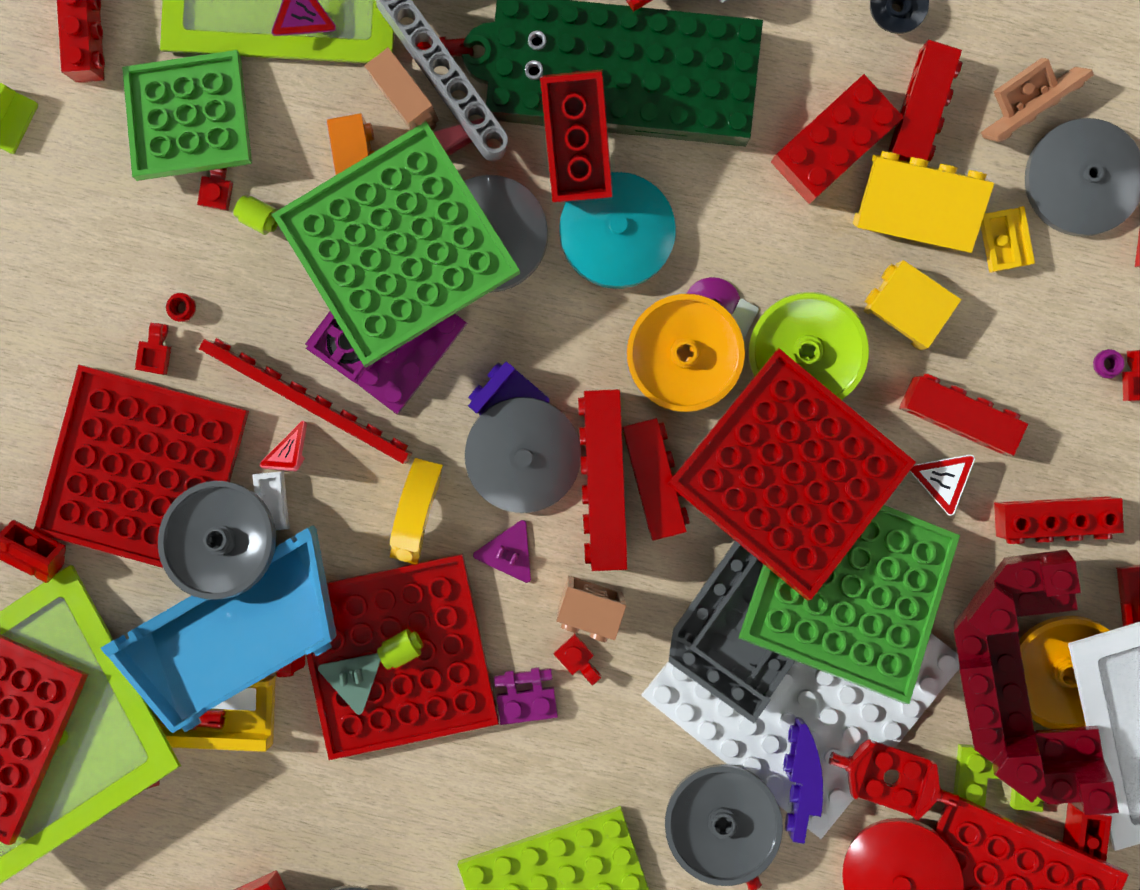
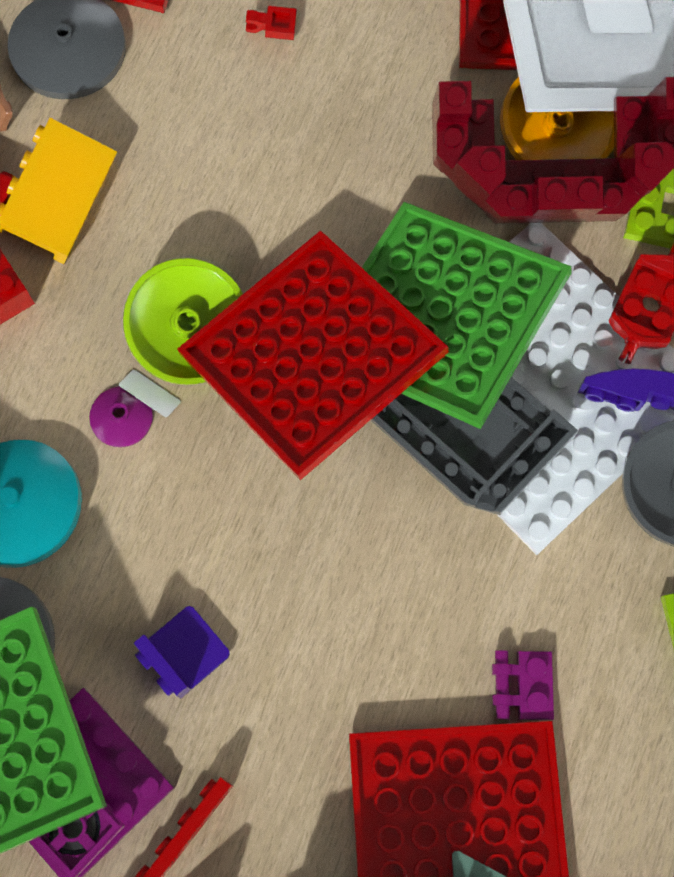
camera: 85 degrees left, 15 degrees down
(400, 649) = (449, 823): lime brick -> none
(414, 510) = (290, 781): yellow arch -> none
(508, 552) = (356, 681): magenta piece -> none
(522, 454) = (245, 645): dark grey dish -> none
(576, 657) = (484, 621): red plate -> none
(591, 609) = (429, 584): nougat brick -> none
(604, 480) = (286, 554): red brick -> none
(652, 473) = (295, 501): red brick -> none
(685, 352) = (163, 448): light orange dish -> none
(912, 303) = (157, 216): yellow panel -> none
(945, 479) = (345, 209): piece -> none
(963, 415) = (281, 184): red brick -> none
(1007, 239) = (113, 120): yellow plate -> none
(1059, 518) = (400, 111): red brick -> none
(1115, 359) = (251, 41): magenta plate -> none

